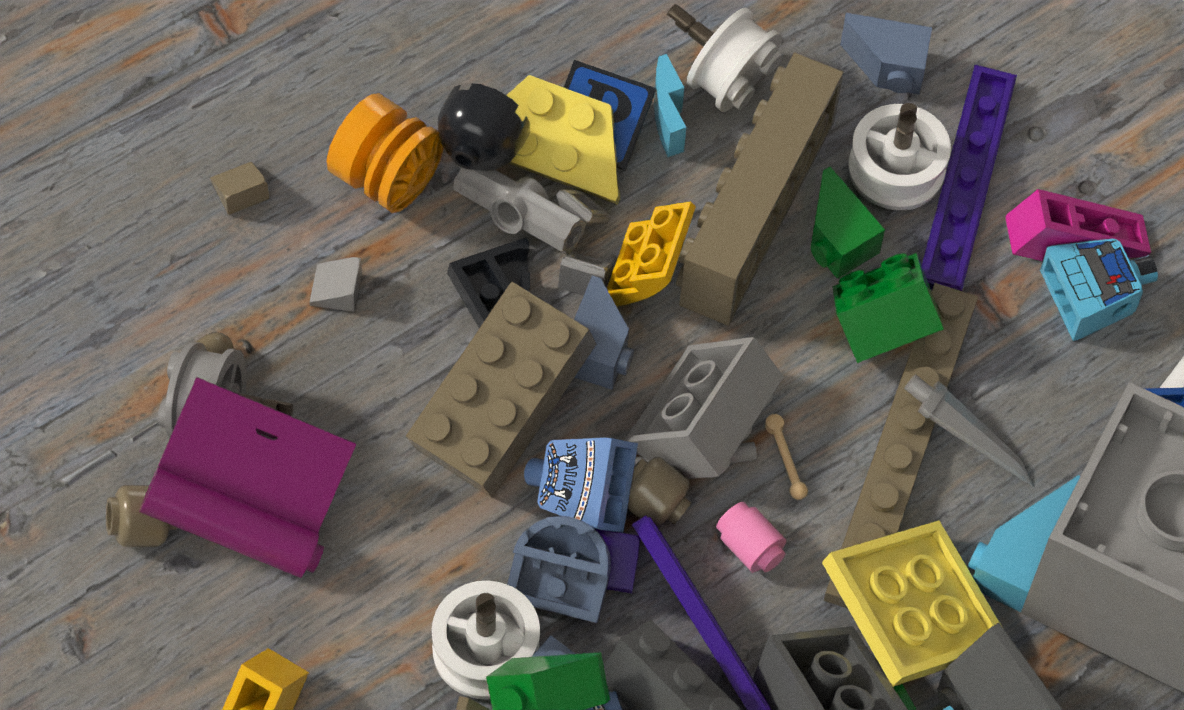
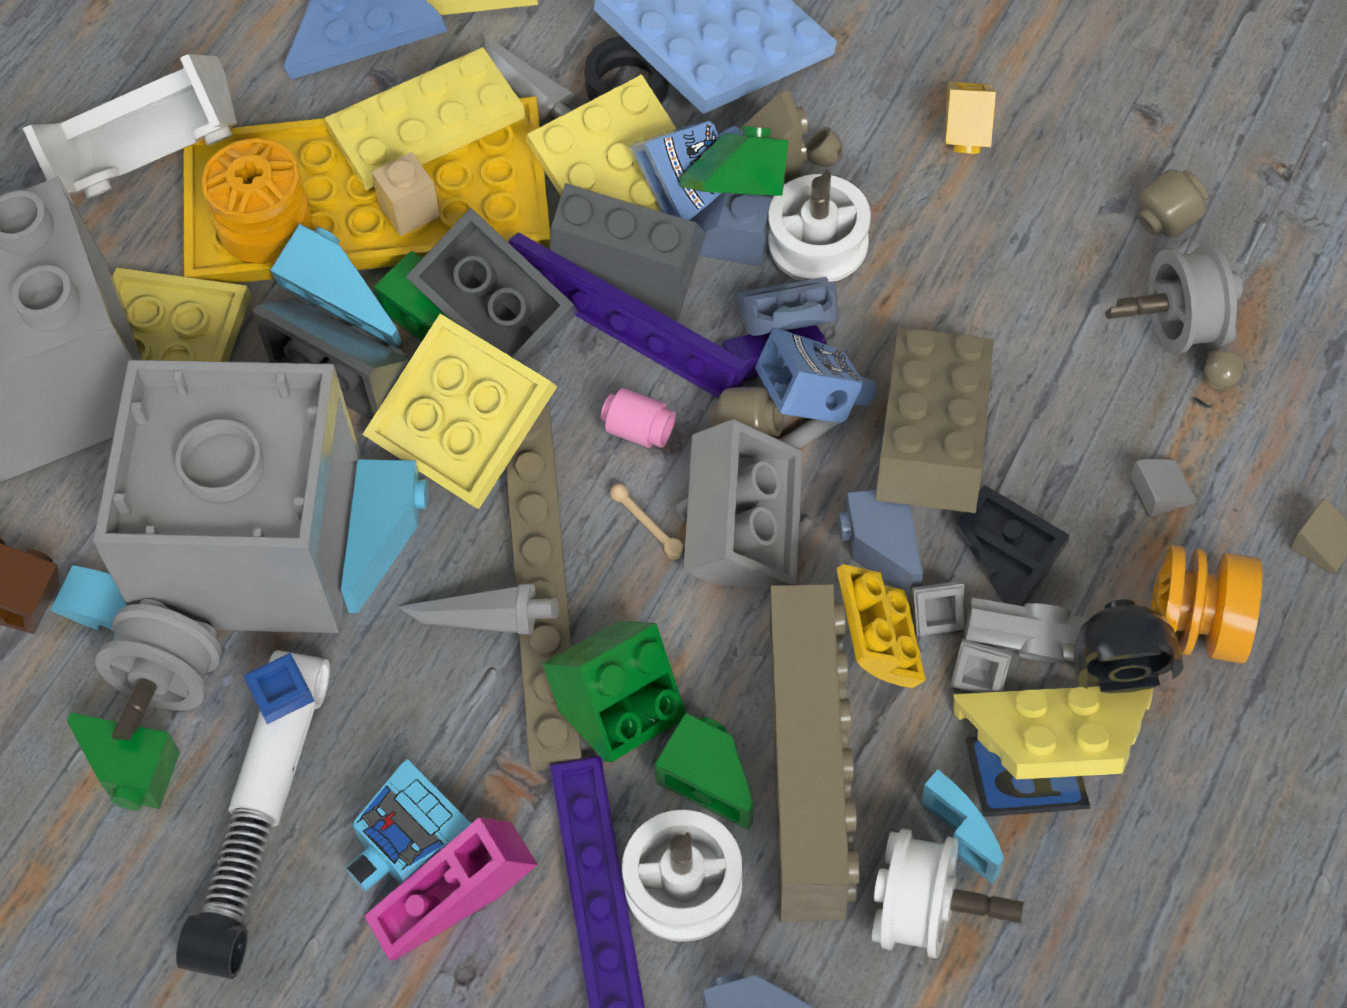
camera: 160 degrees right, 0 degrees up
(245, 487) = (1099, 234): magenta door -> none

